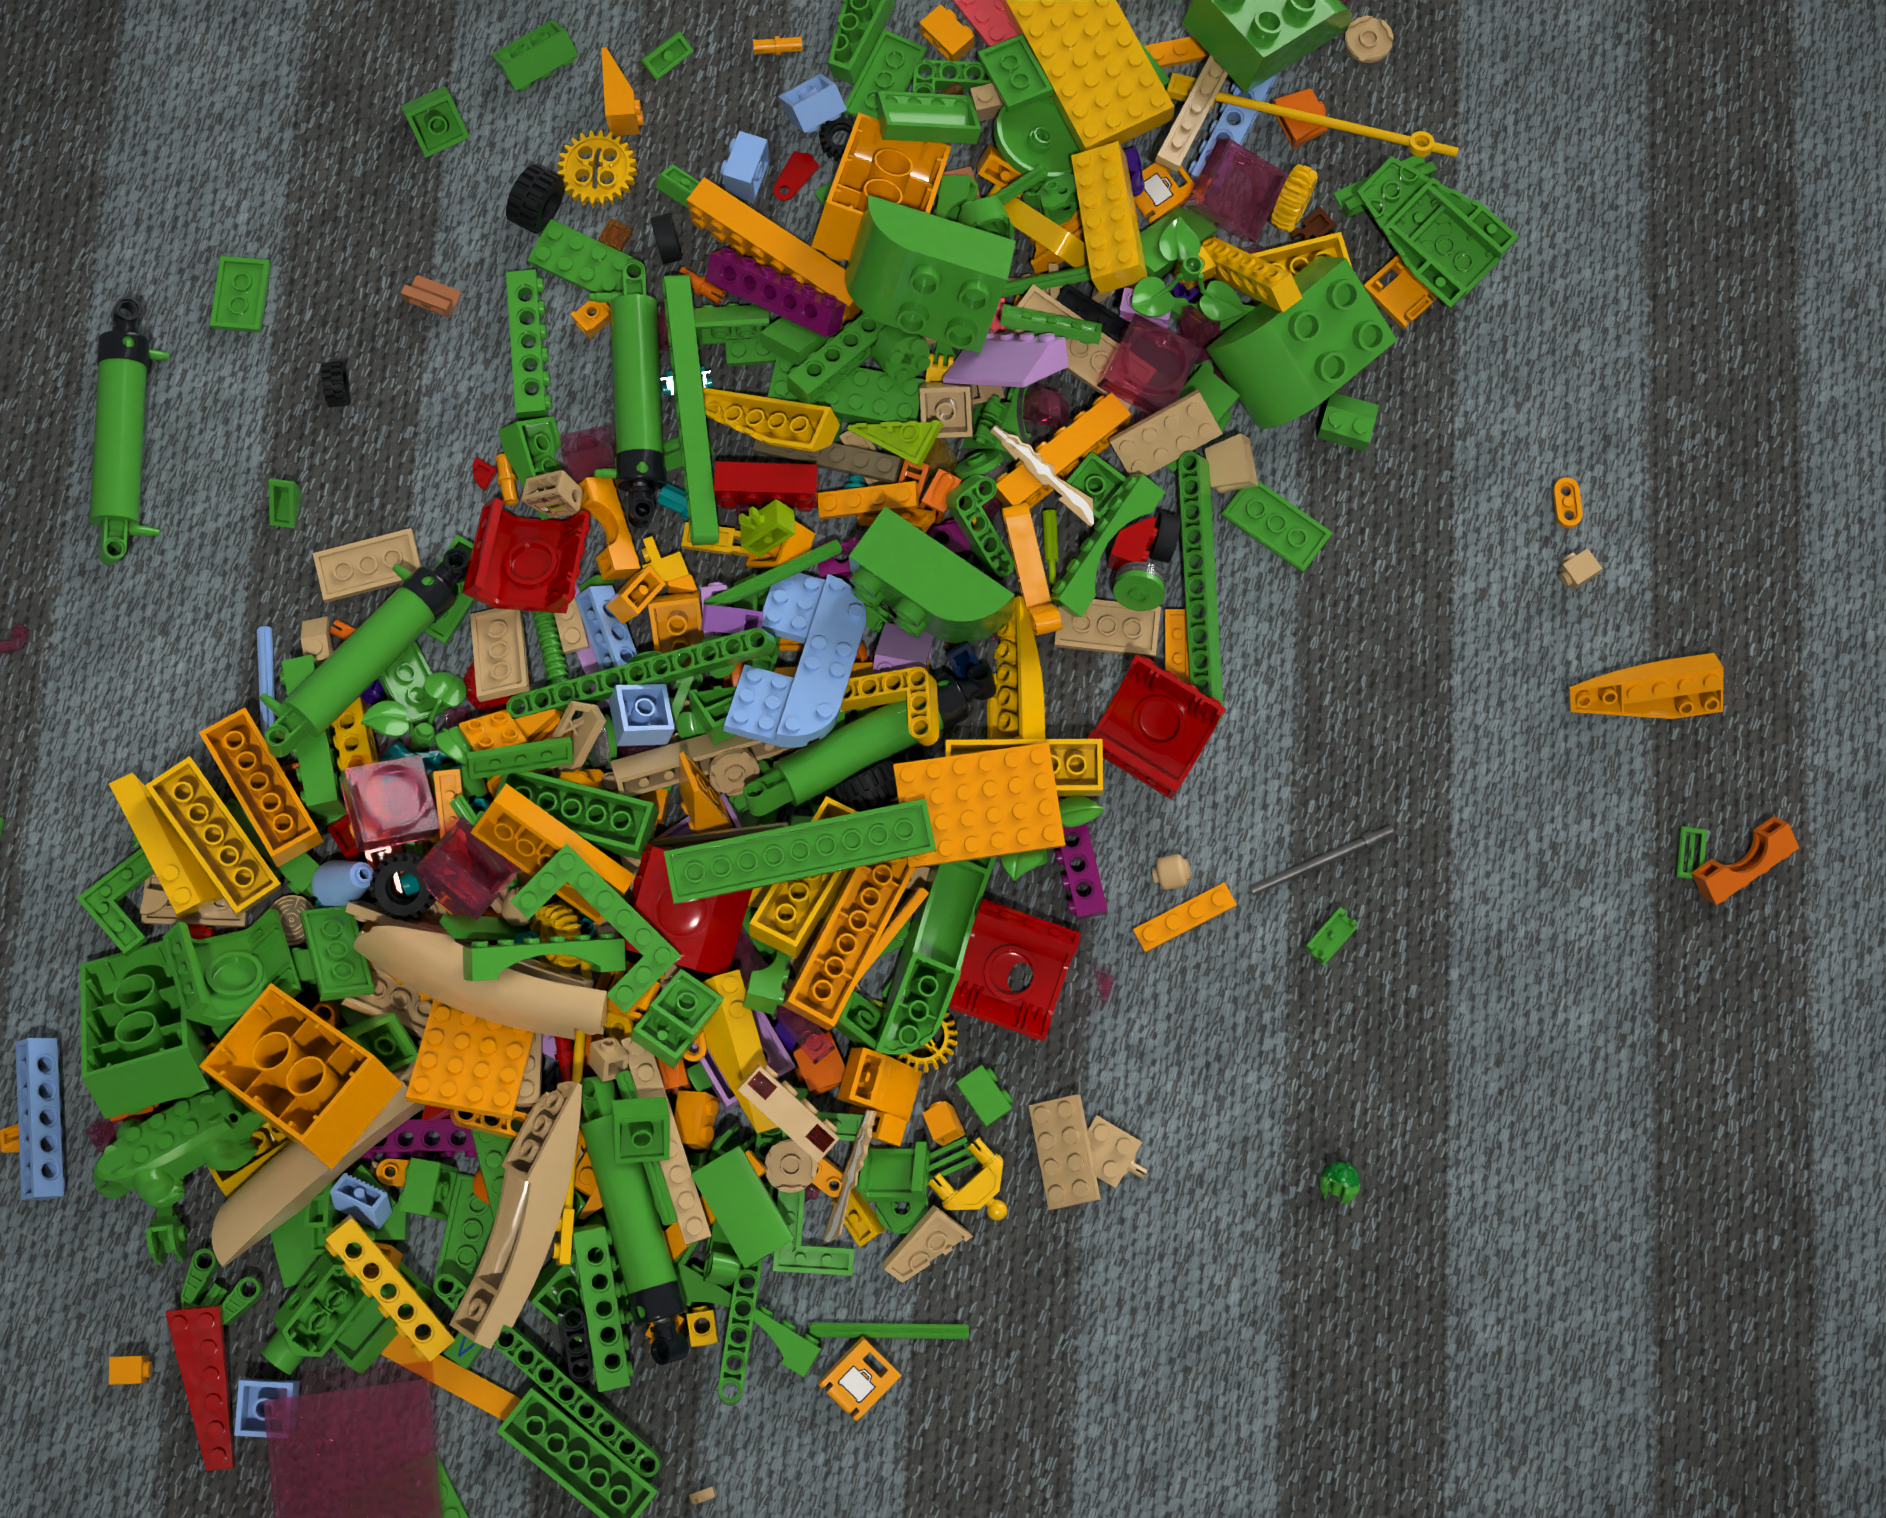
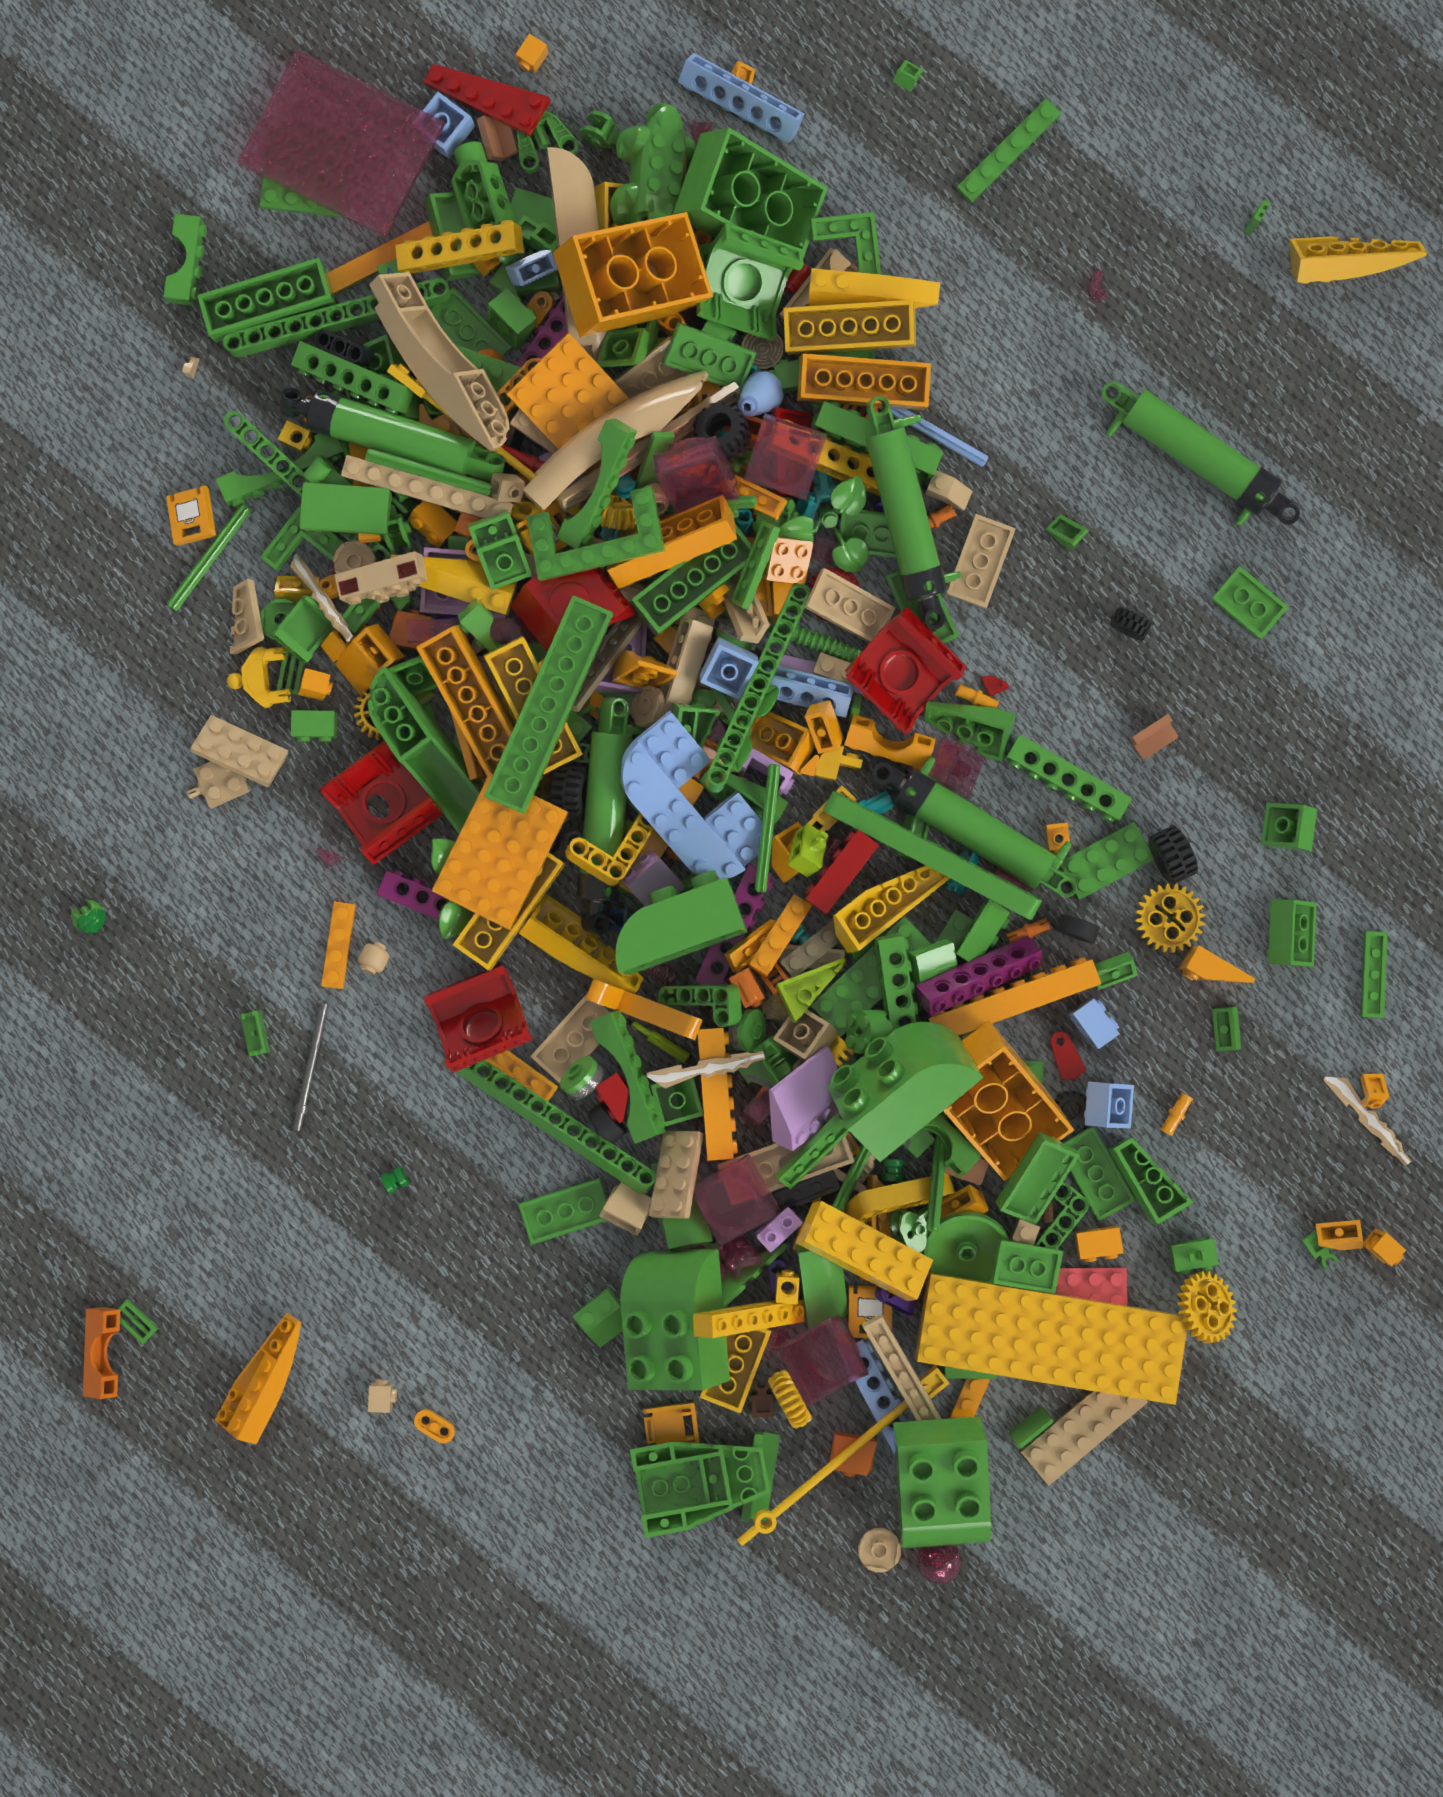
camera: 125 degrees right, 10 degrees up
(244, 1342) = (497, 139): none -> nougat panel
(553, 494) = (931, 726): tan torso -> none
(615, 235) = (1109, 896): clear orange plate -> none
(640, 1130) = (438, 473): bright green slope -> none
(729, 619) = (750, 775): medium lavender slope -> none
(987, 215) = (922, 1159): bright green brick -> none
(1020, 255) = (892, 1169): none -> green wheel
(1182, 244) = (777, 1236): bright green plant -> none
(1368, 700) = (394, 1180): none -> green wheel

